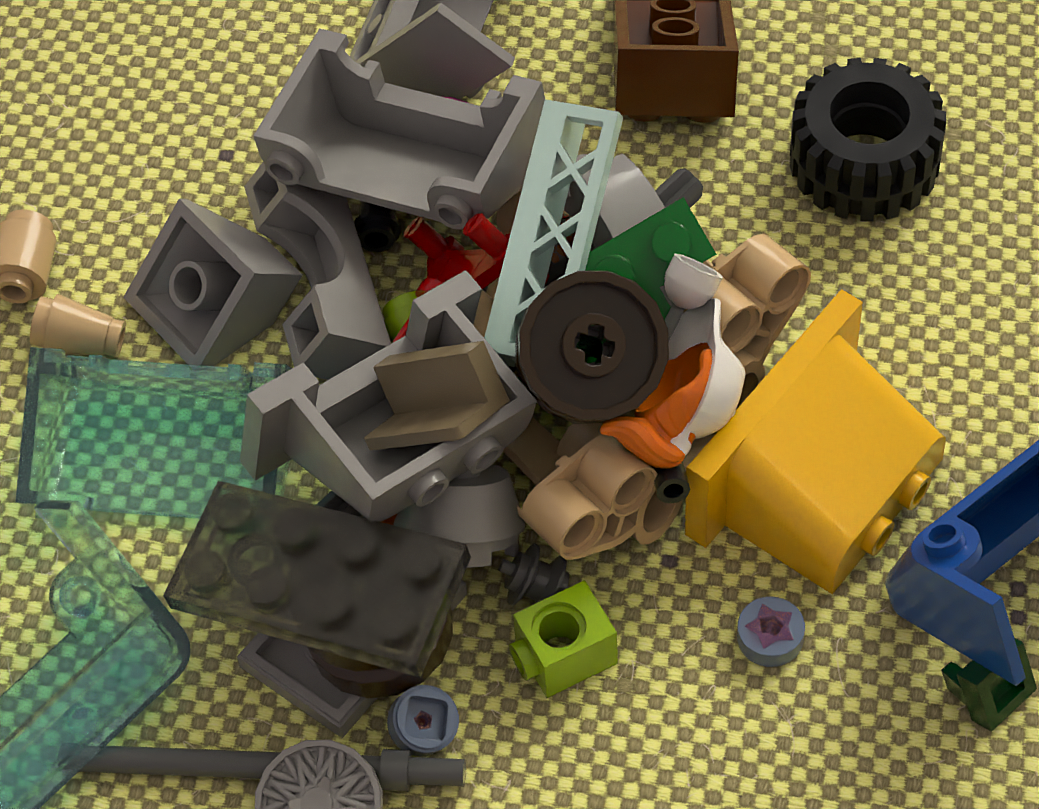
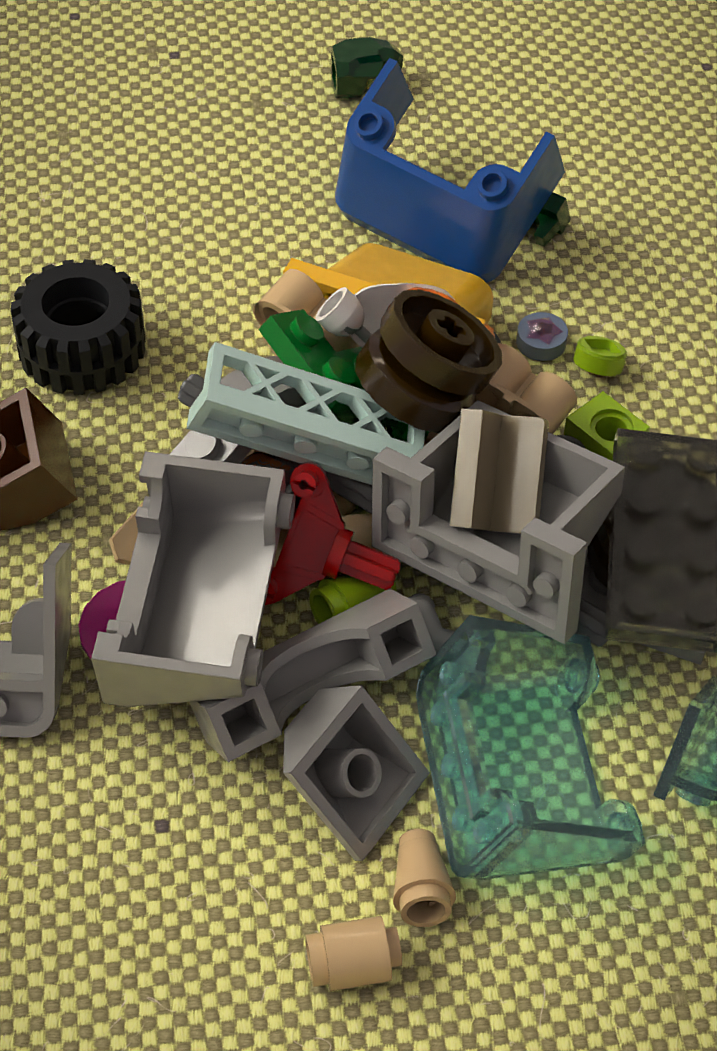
camera: 110 degrees left, 5 degrees down
(712, 682) = (600, 356): none -> lime tile

